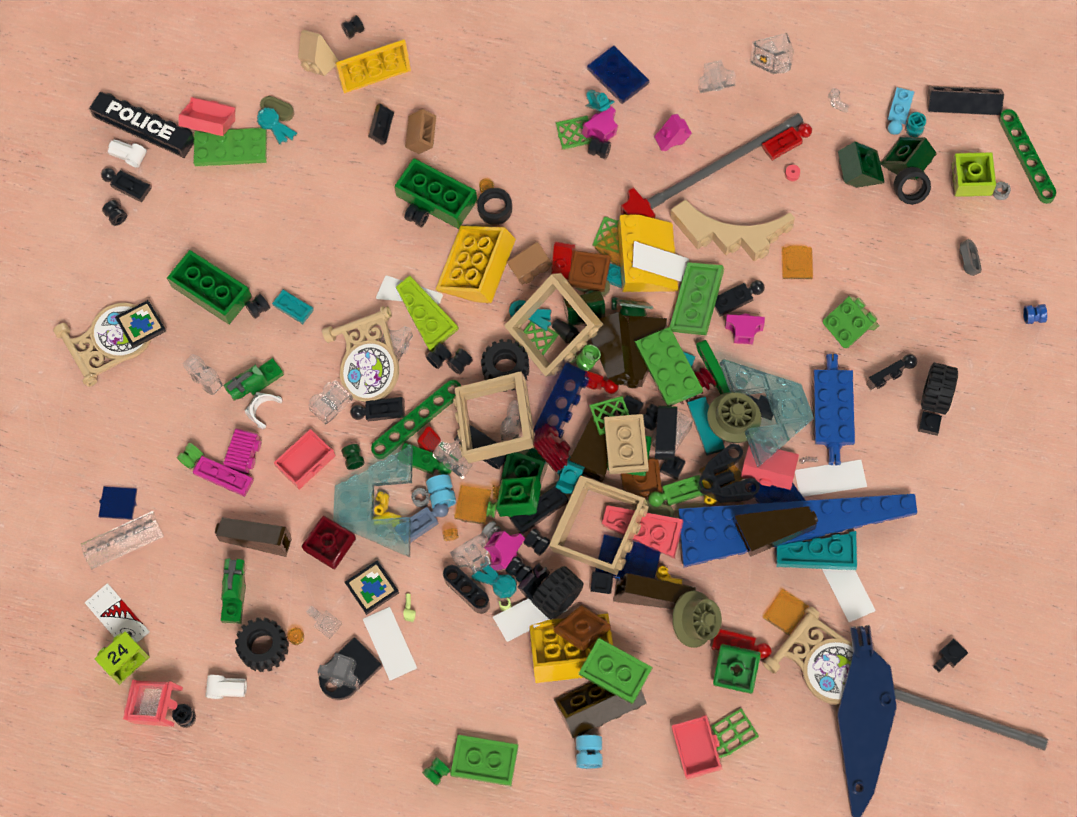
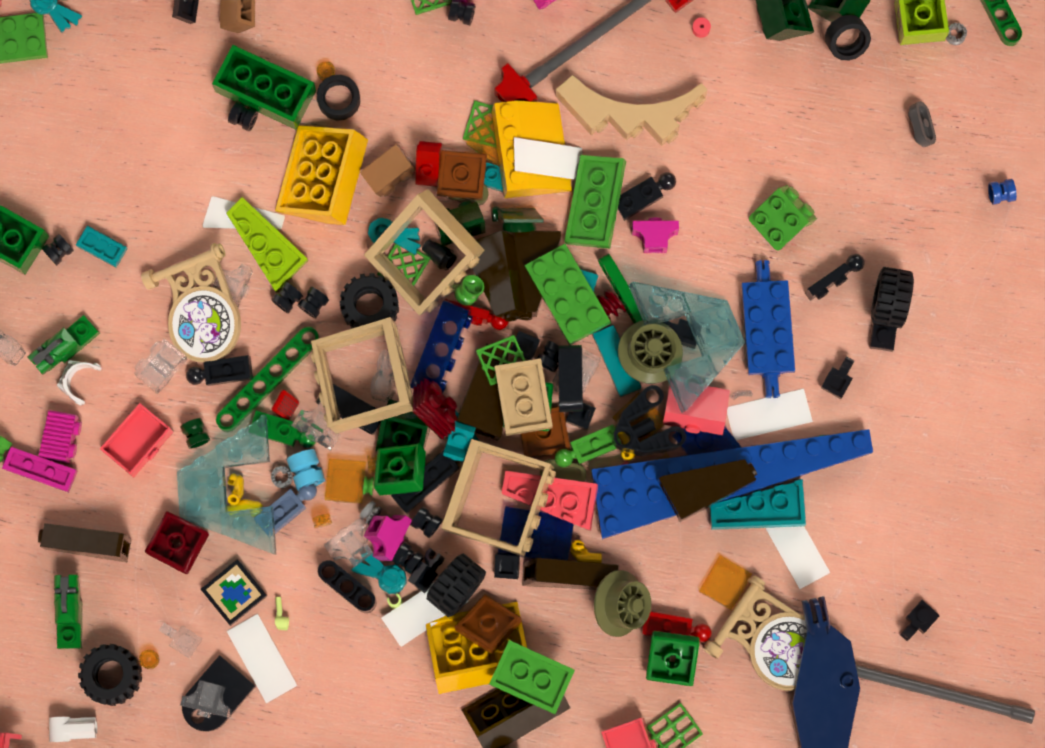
camera: 10 degrees left, 10 degrees up
(797, 262) = (714, 144): clear yellow piece -> none
(891, 454) = (838, 380): none -> black plate

